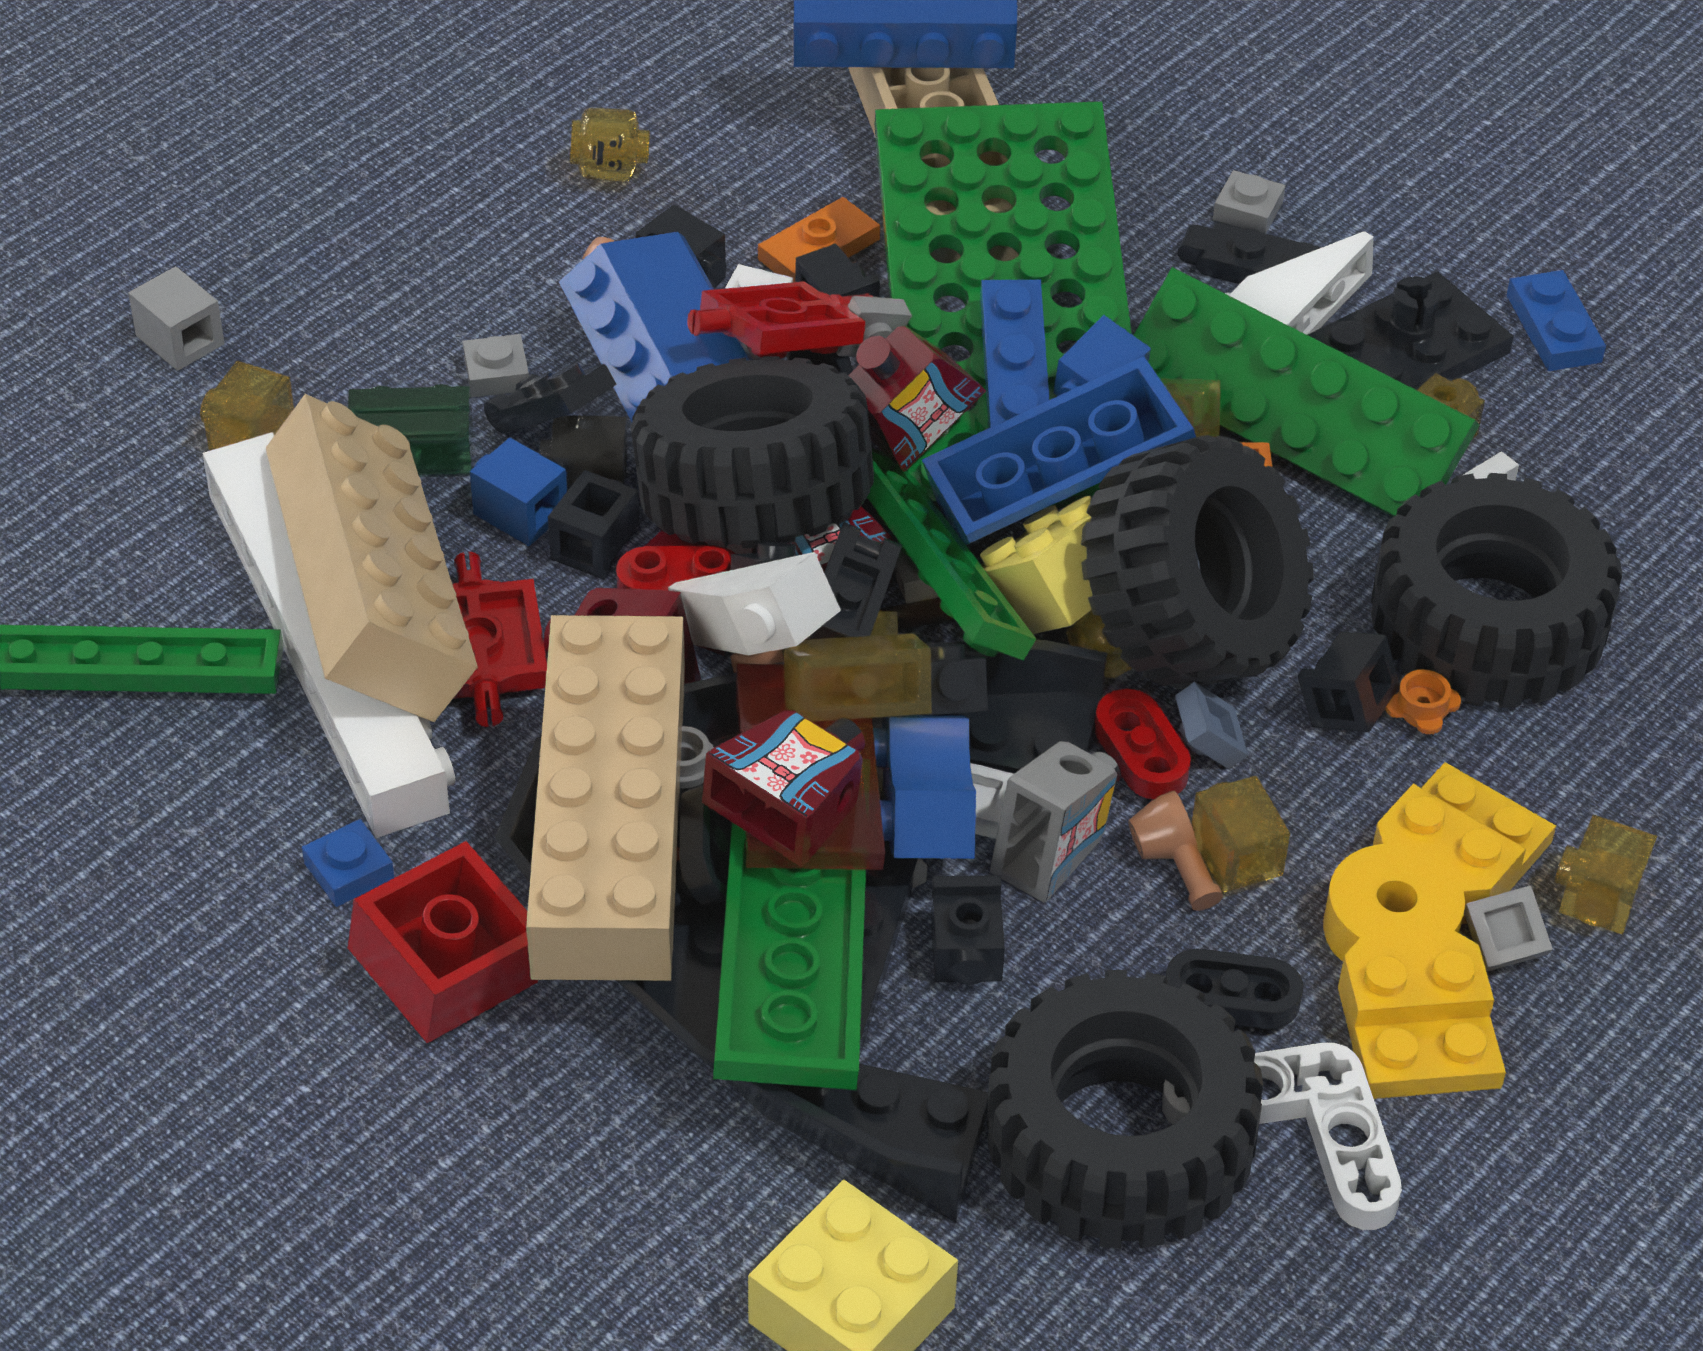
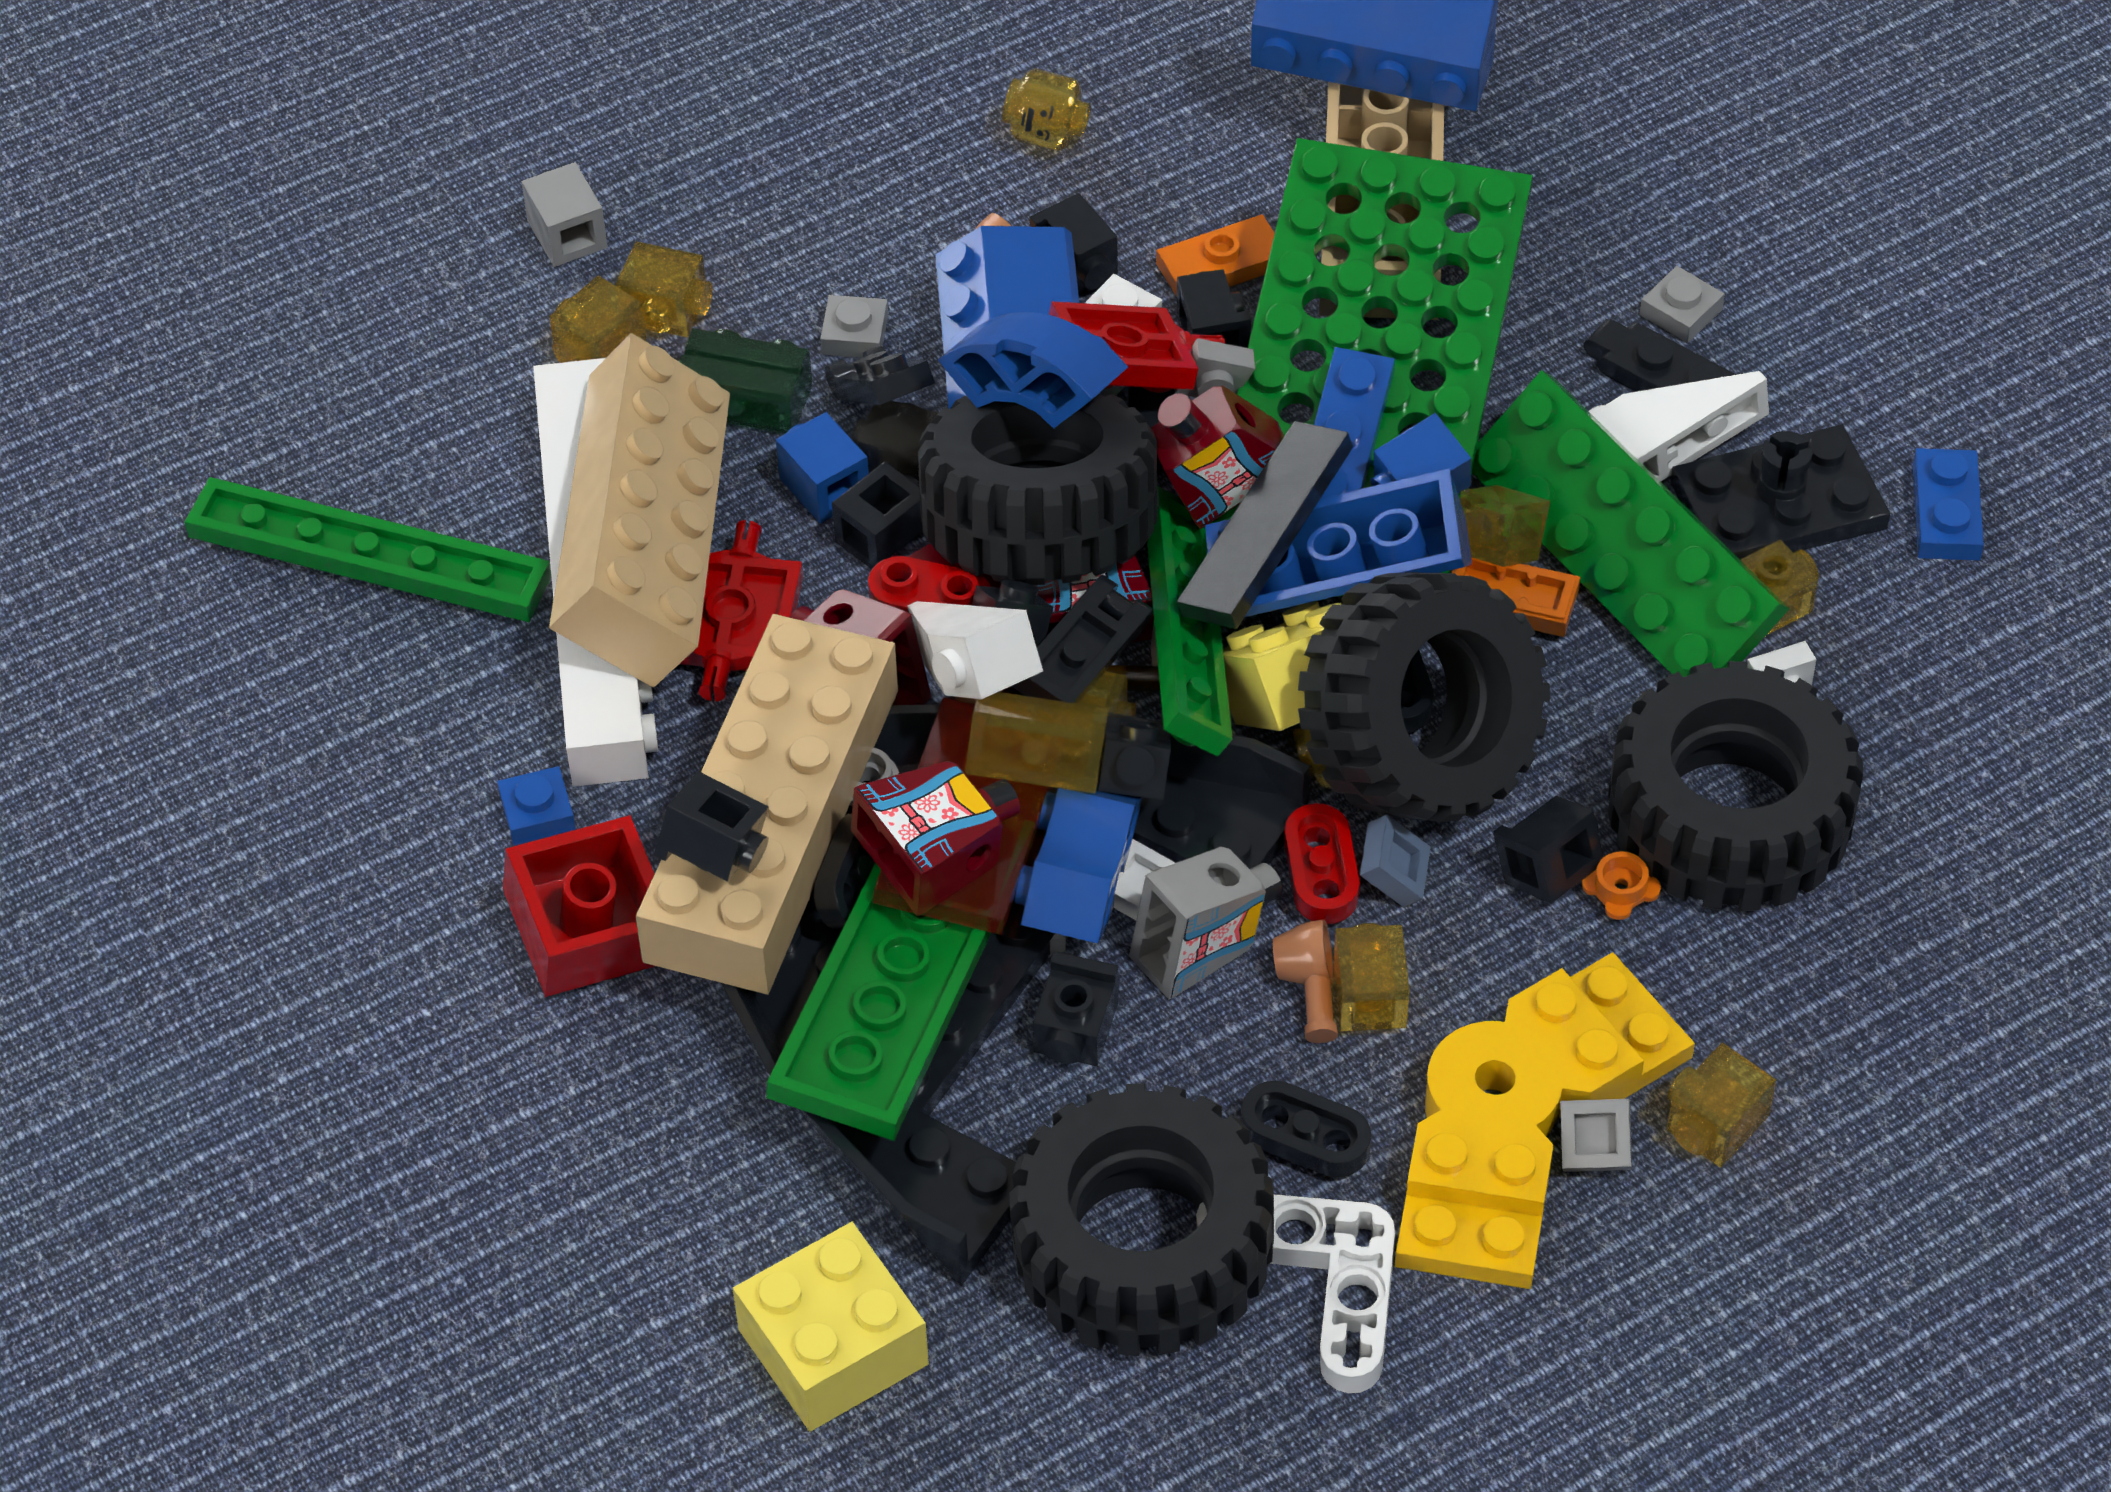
camera: 20 degrees right, 5 degrees up
(305, 355) = (668, 286): none -> clear yellow brick
(587, 819) = (713, 828): none -> black brick
(723, 337) = (1034, 363): none -> blue brick
(986, 444) = (1265, 524): none -> tile

